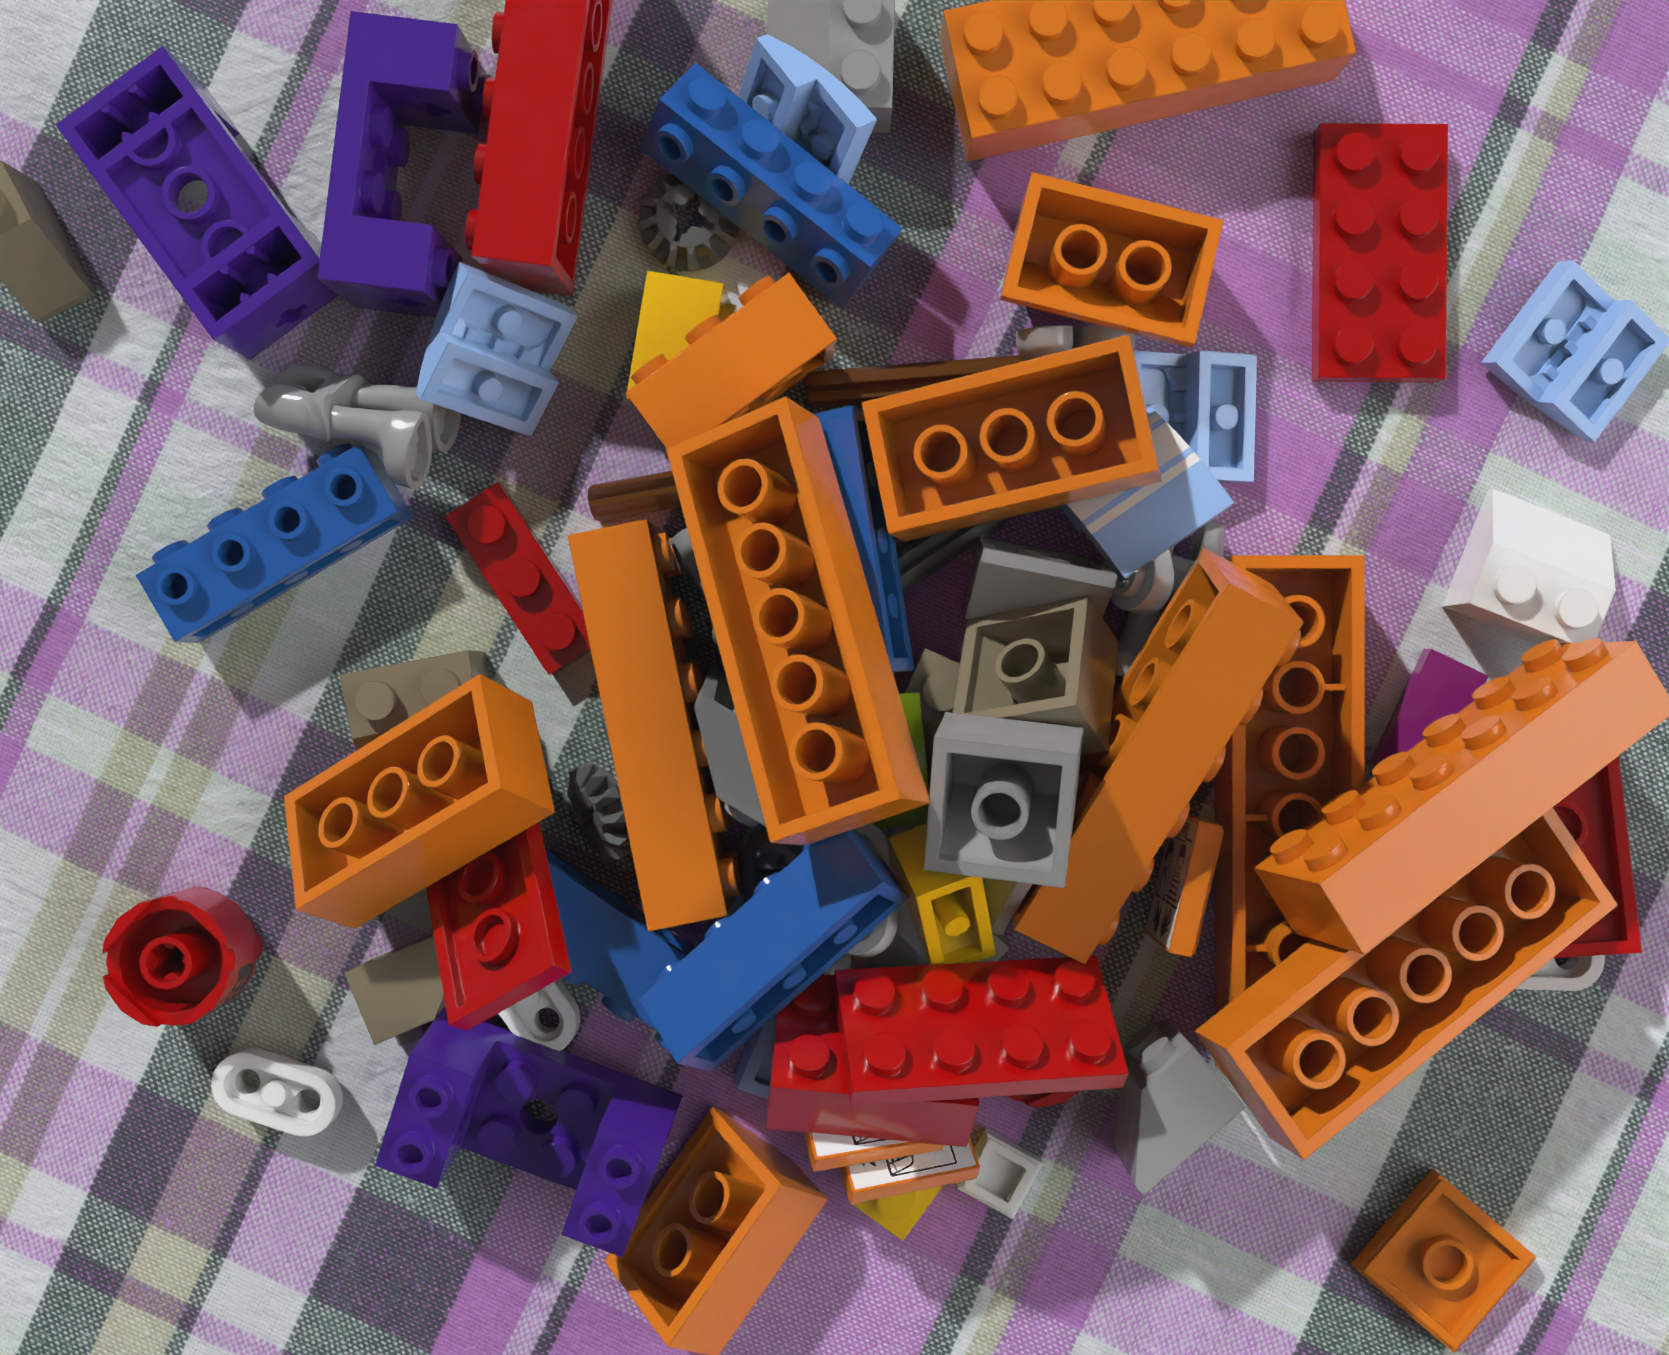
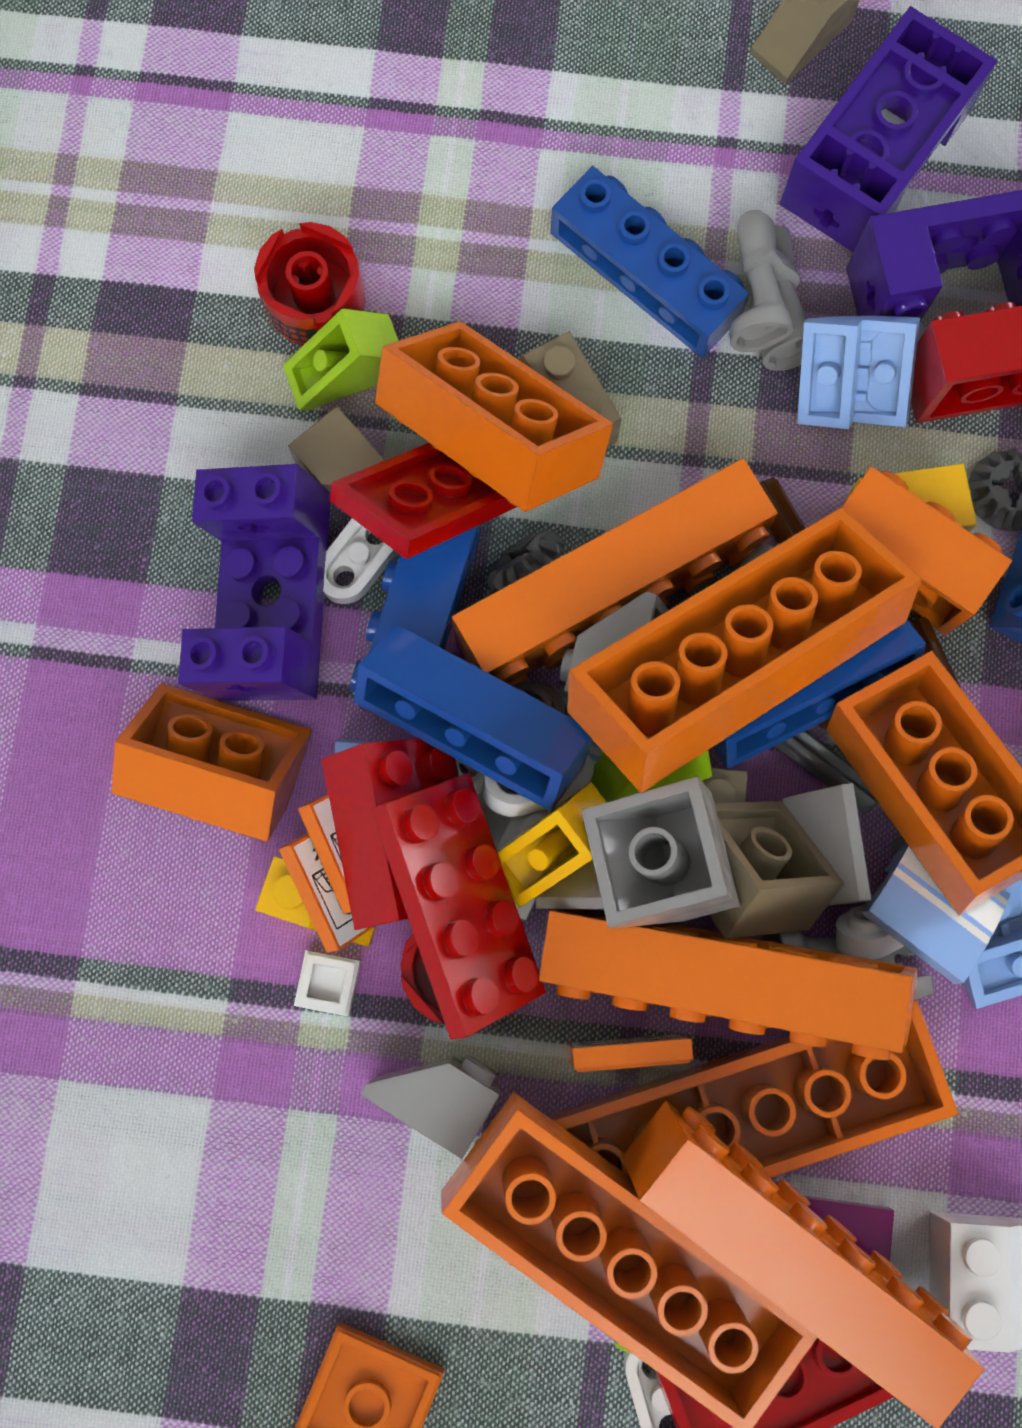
camera: 75 degrees right, 10 degrees down
(280, 1094) = (224, 394): white plate -> none
(281, 946) = (339, 358): none -> lime slope
(523, 577) = (687, 448): red plate -> none

